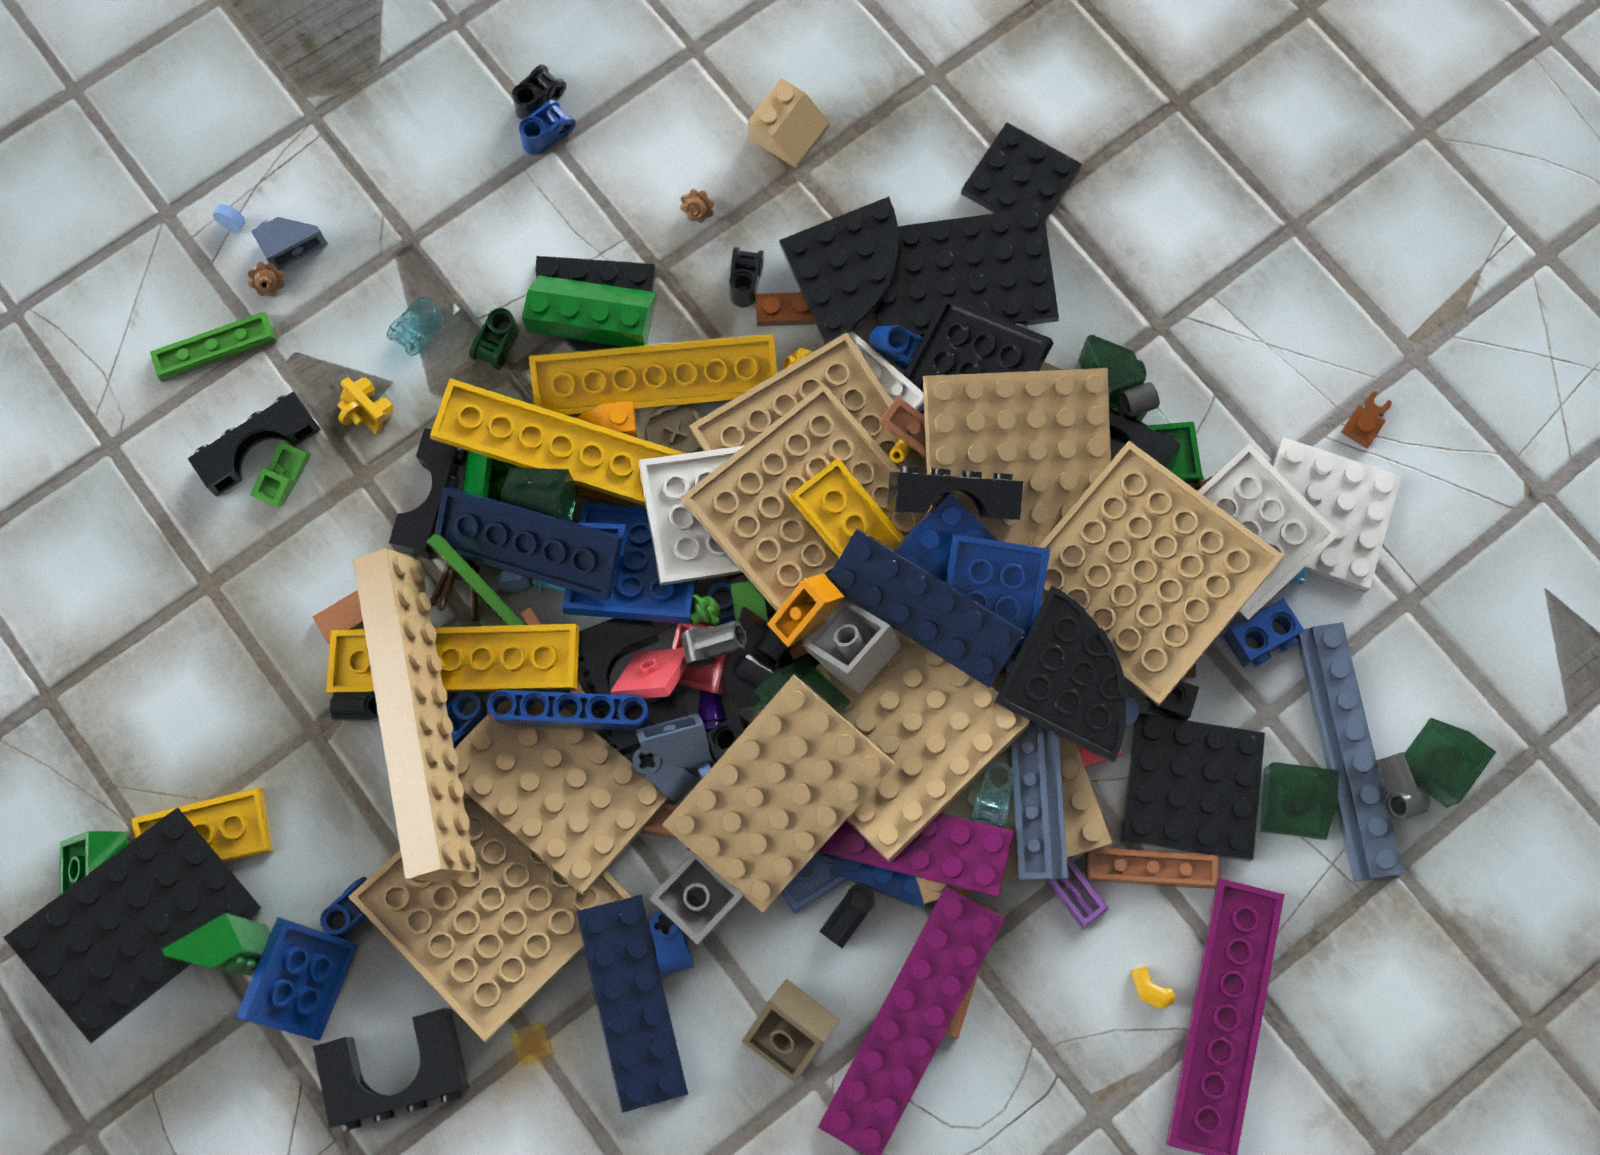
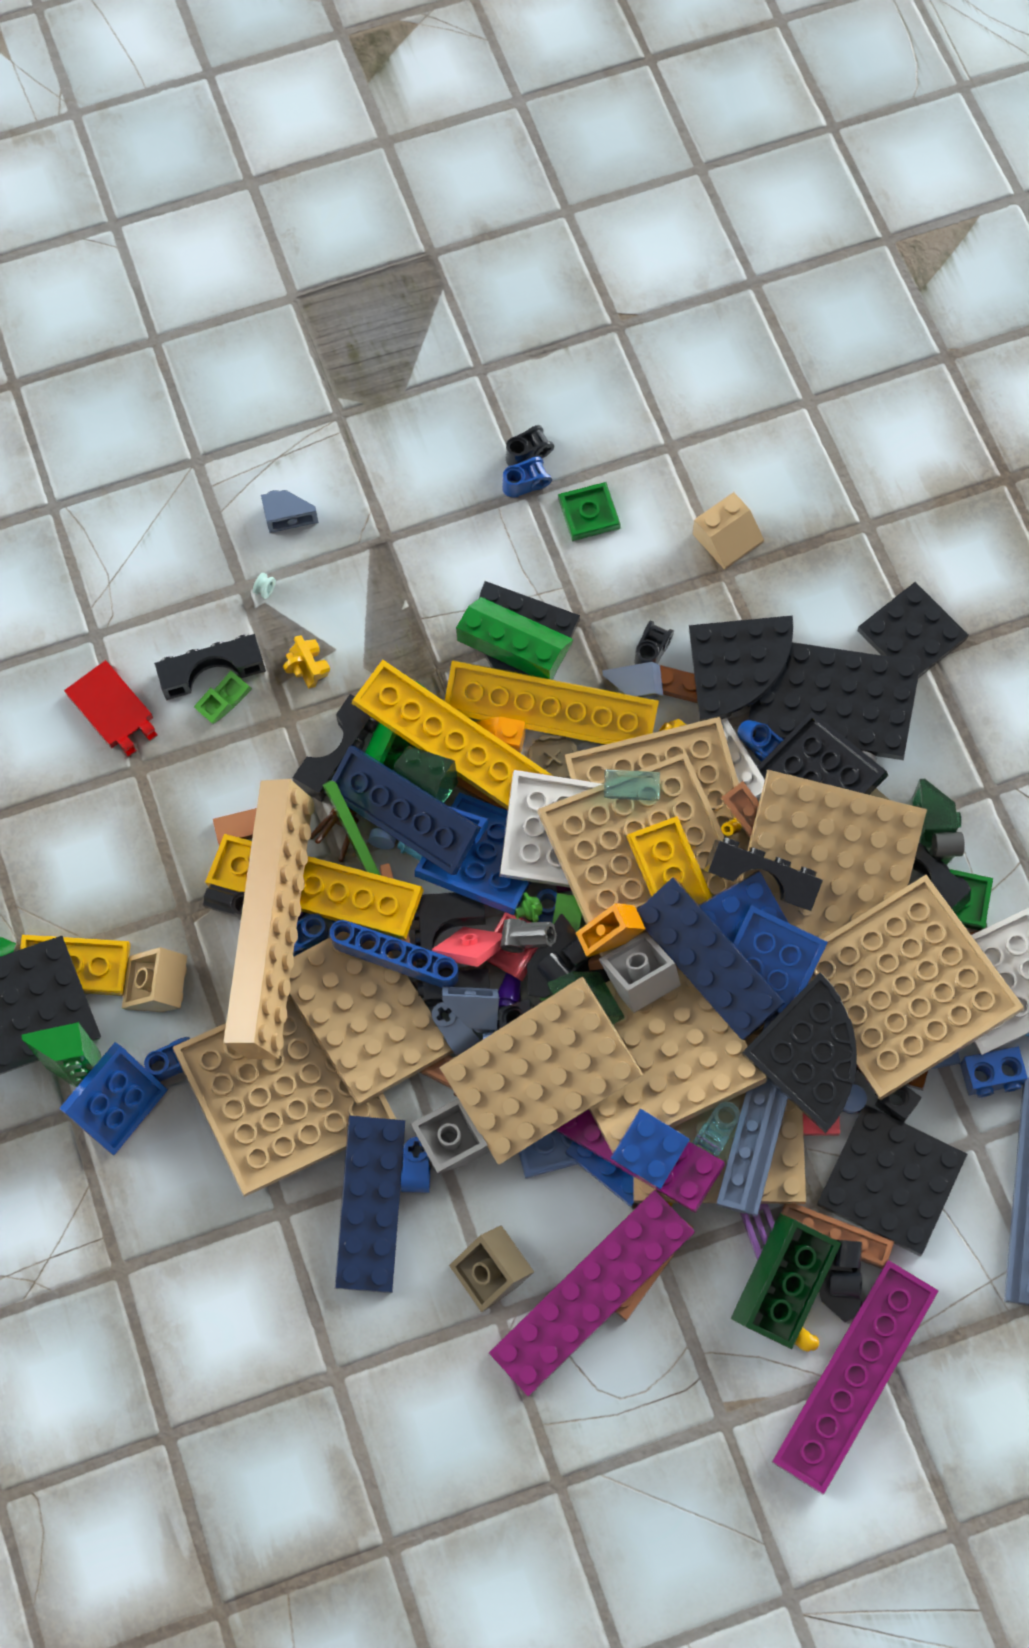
camera: 20 degrees right, 5 degrees down
(154, 523) = (111, 707): none -> red tile
(213, 346) = (201, 579): bright green tile -> none
(228, 218) = (246, 479): light blue tile -> none
(266, 279) = (260, 537): medium nougat plant -> none
(287, 333) = (264, 585): none -> light aqua bush
(304, 824) = (155, 981): none -> tan slope
(351, 1099) = (198, 1213): black arch -> none
(416, 329) = (368, 612): clear light blue piece -> none
(494, 344) = (428, 643): dark green piece -> none
(531, 1044) = (280, 1211): clear yellow plate -> none
(627, 145) = (589, 511): none -> green tile
(697, 205) = (630, 577): medium nougat plant -> none
(742, 317) = (637, 680): none -> sand blue slope
(776, 437) = (631, 785): none -> clear light blue tile
(846, 918) = (566, 1193): black piece -> none
(928, 843) = (650, 1148): none -> blue plate
(1118, 940) = (785, 1281): none -> dark green slope
(1170, 911) = (843, 1282): none -> black panel
(1299, 800) = (977, 1218): clear green slope -> none

